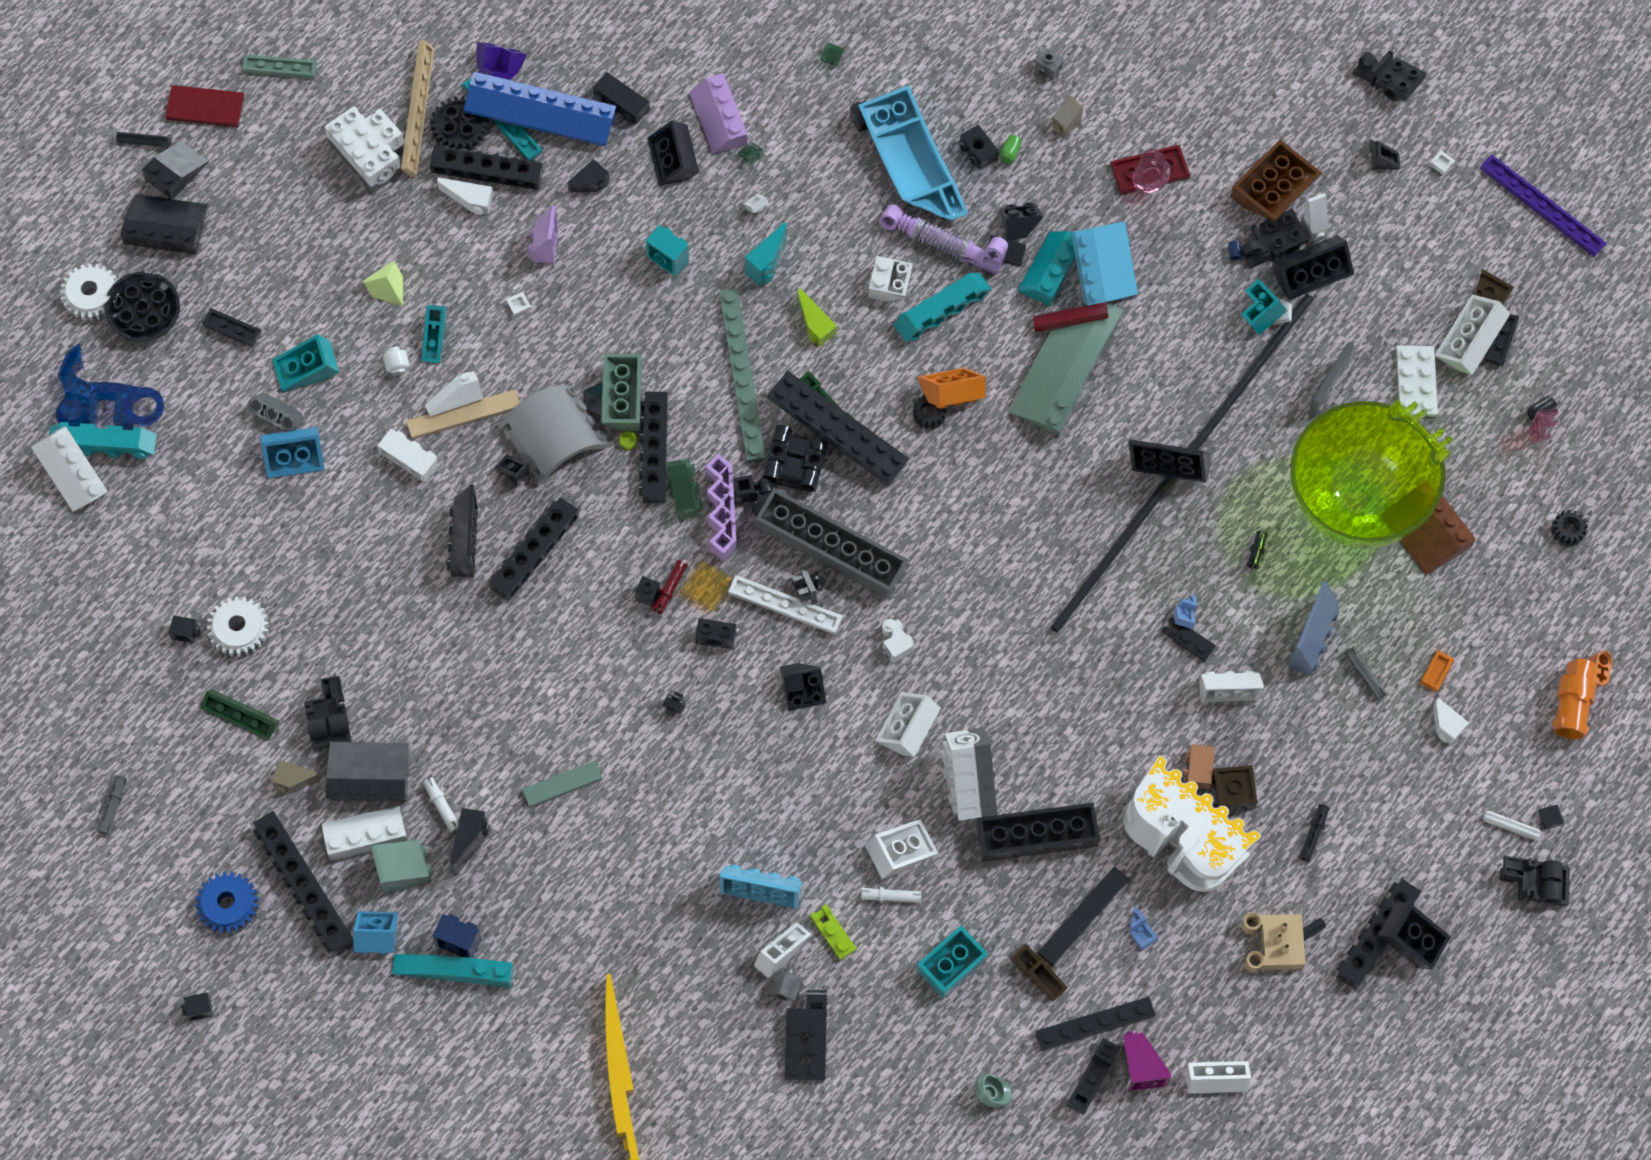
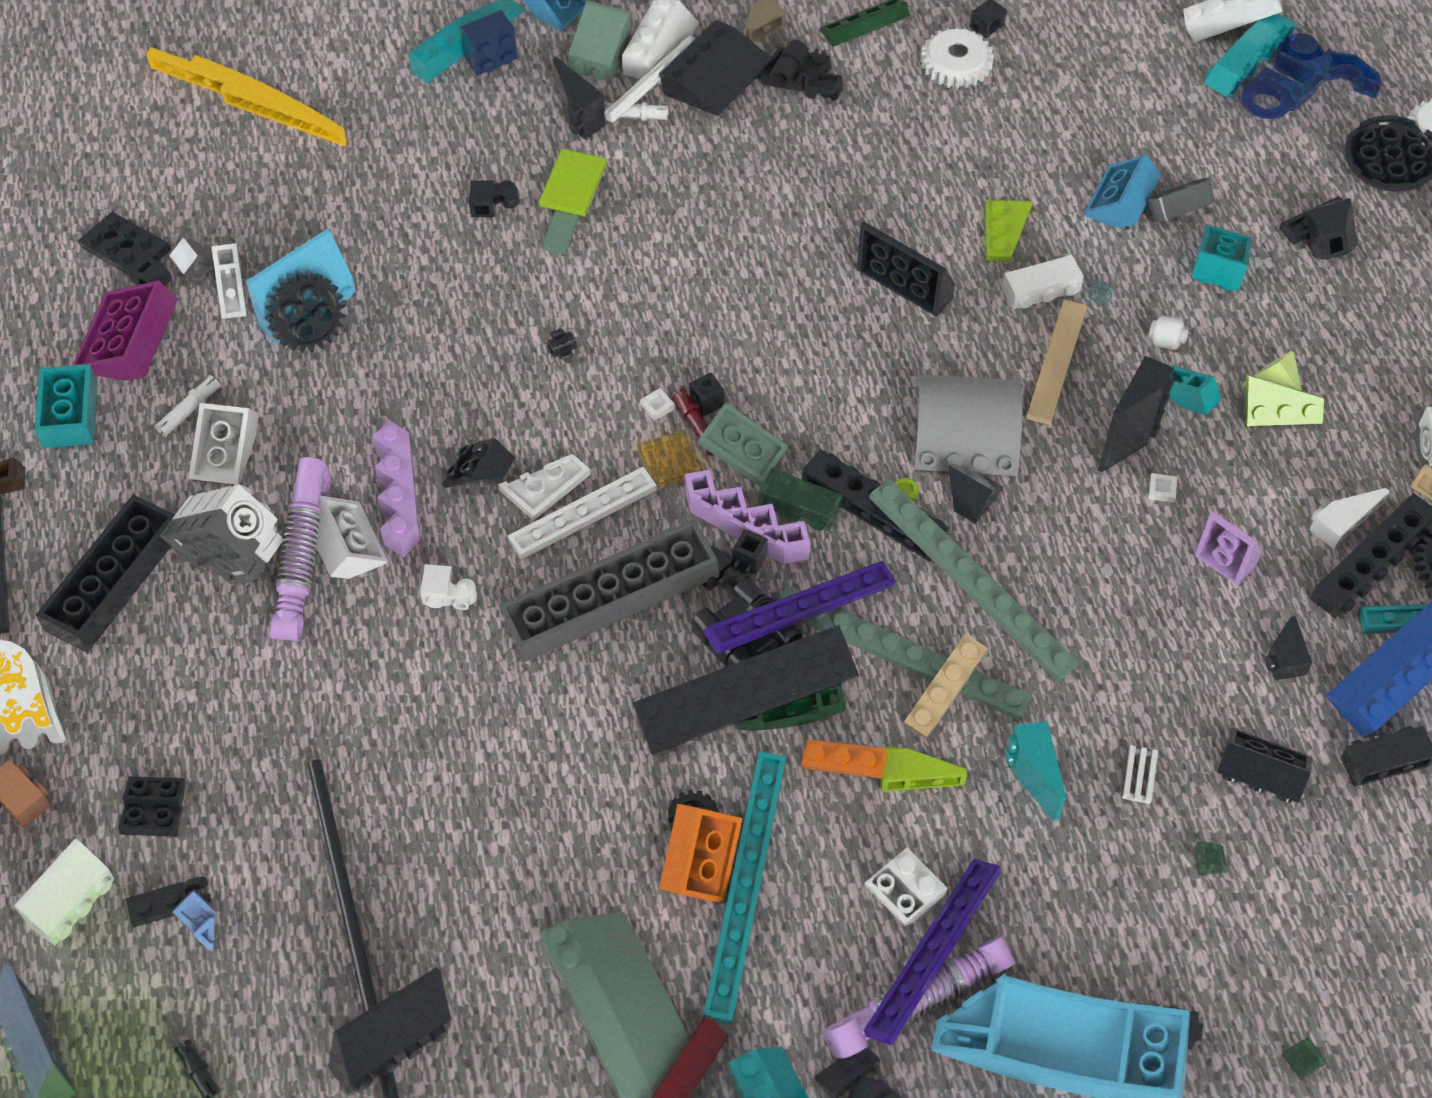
camera: 130 degrees right, 10 degrees down
(243, 308) = (1332, 229): none -> black slope
(373, 508) = (1004, 226): none -> lime wing
(387, 421) = (1100, 293): none -> clear light blue tile
(409, 805) = (644, 84): none -> white axle
(412, 270) = (1279, 405): none -> wing
(457, 393) = (1084, 362): white slope -> none
(496, 327) = (1138, 412): none -> black slope
(508, 587) = (843, 329): black brick -> none
(513, 468) = (950, 357): black slope -> none
(537, 793) = (573, 182): none -> lime tile
(590, 842) = (487, 194): none -> black brick
(622, 392) = (968, 507): sand green slope -> none
(667, 250) = (1123, 662): teal brick -> none
(670, 360) = (974, 580): none -> sand green plate
(670, 544) = (742, 444): none -> sand green plate
(672, 621) = (657, 404): none -> white tile
(709, 212) = (1143, 753): none -> white tile
(716, 633) = (604, 425): black brick -> none
(718, 114) = (1293, 857): lavender slope -> none
(750, 333) = (946, 686): none -> tan plate
(756, 203) = (1128, 811): white plate -> none
(763, 433) = (799, 607): none -> dark purple tile
(777, 864) = (317, 328): none -> black gear
(782, 639) = (544, 488): none -> white wing
(811, 585) = (581, 543): black hips -> none
(833, 933) = (204, 337): lime plate -> none
(837, 356) = (844, 758): none -> orange plate
(857, 710) = (399, 498): none -> lavender brick
(871, 982) = (127, 331): none -> magenta slope
(914, 243) = (931, 952): none -> dark purple tile
(920, 741) = (311, 482): none -> lavender piece
(937, 308) = (821, 928): teal brick -> none
(946, 360) = (744, 888): none -> teal plate
(1147, 692) = (152, 806): none -> black slope

